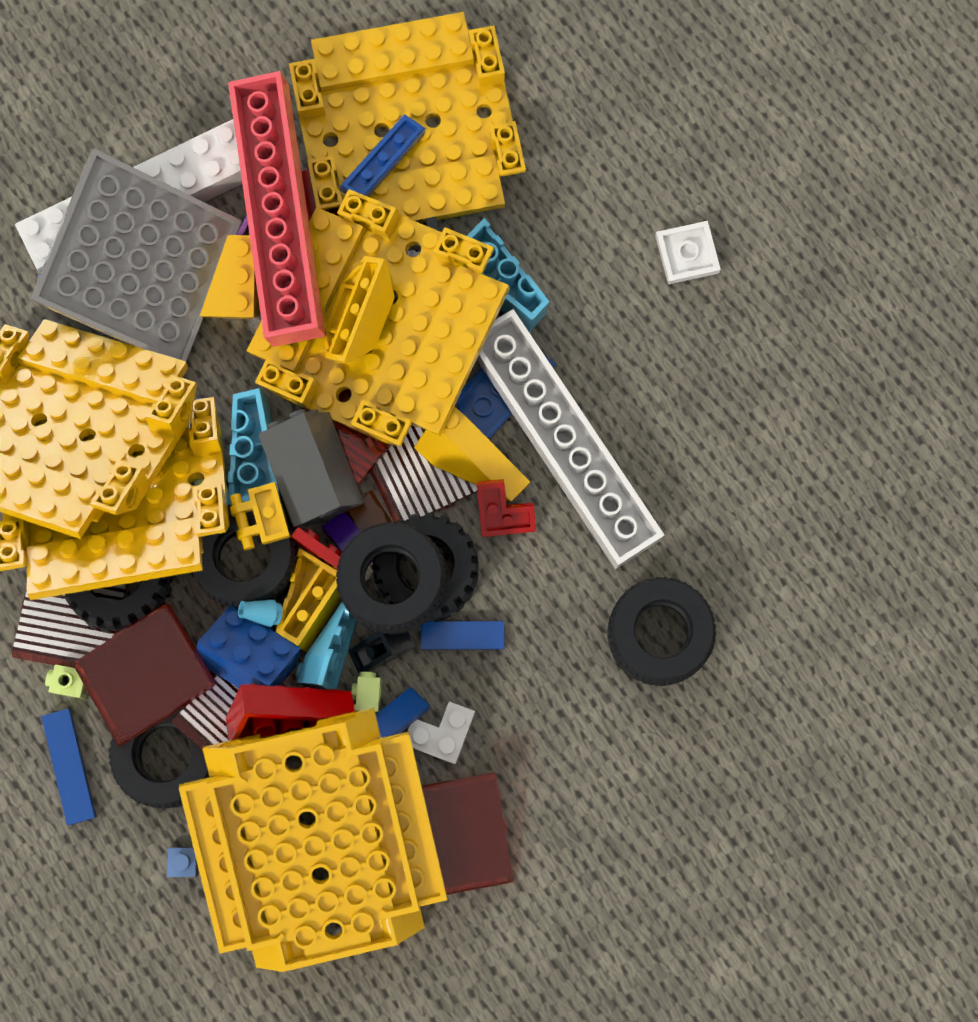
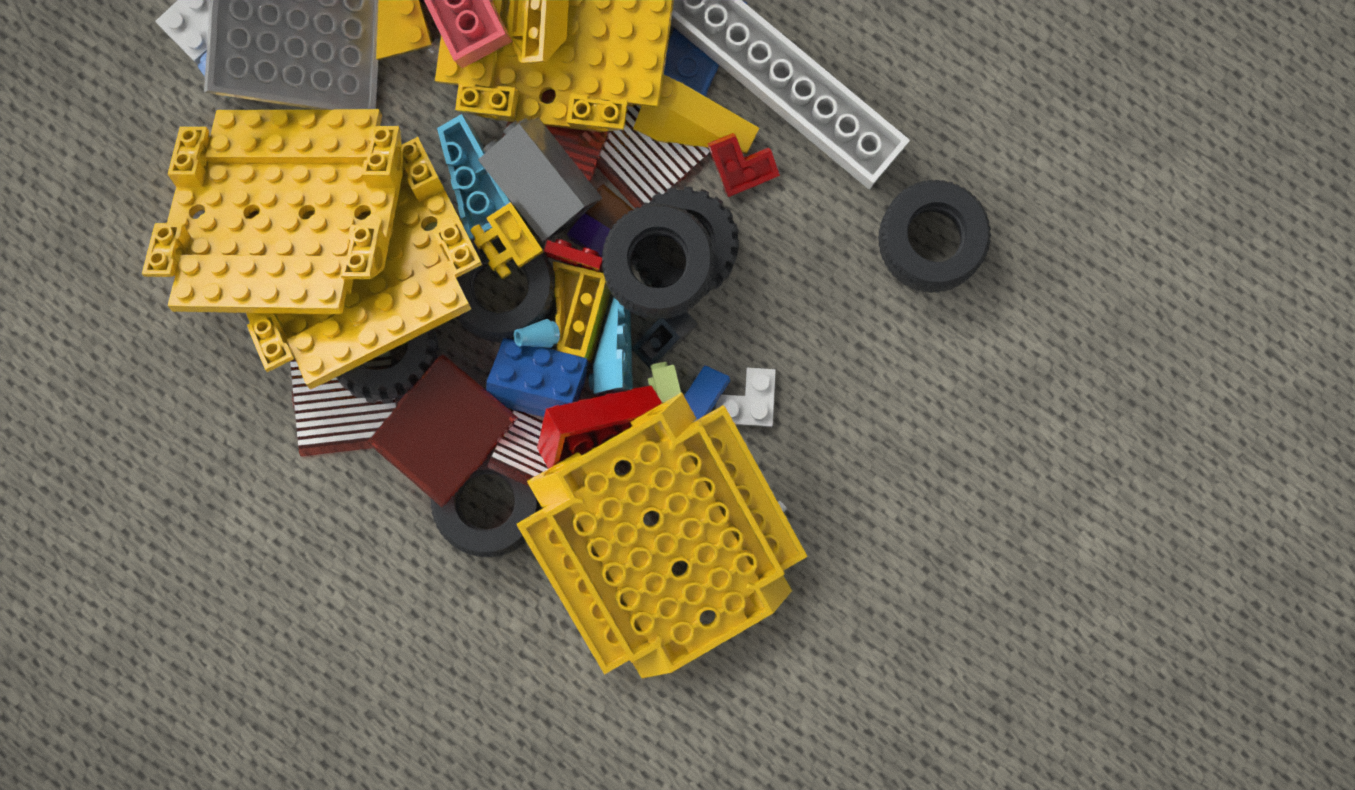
camera: 20 degrees left, 5 degrees up
(68, 767) = (393, 544): blue tile -> none
(74, 688) = (376, 463): yellowish green brick -> none
(181, 862) = (536, 601): medium blue plate -> none
(462, 635) = (740, 300): blue tile -> none
(469, 832) = (808, 486): clear red piece -> none

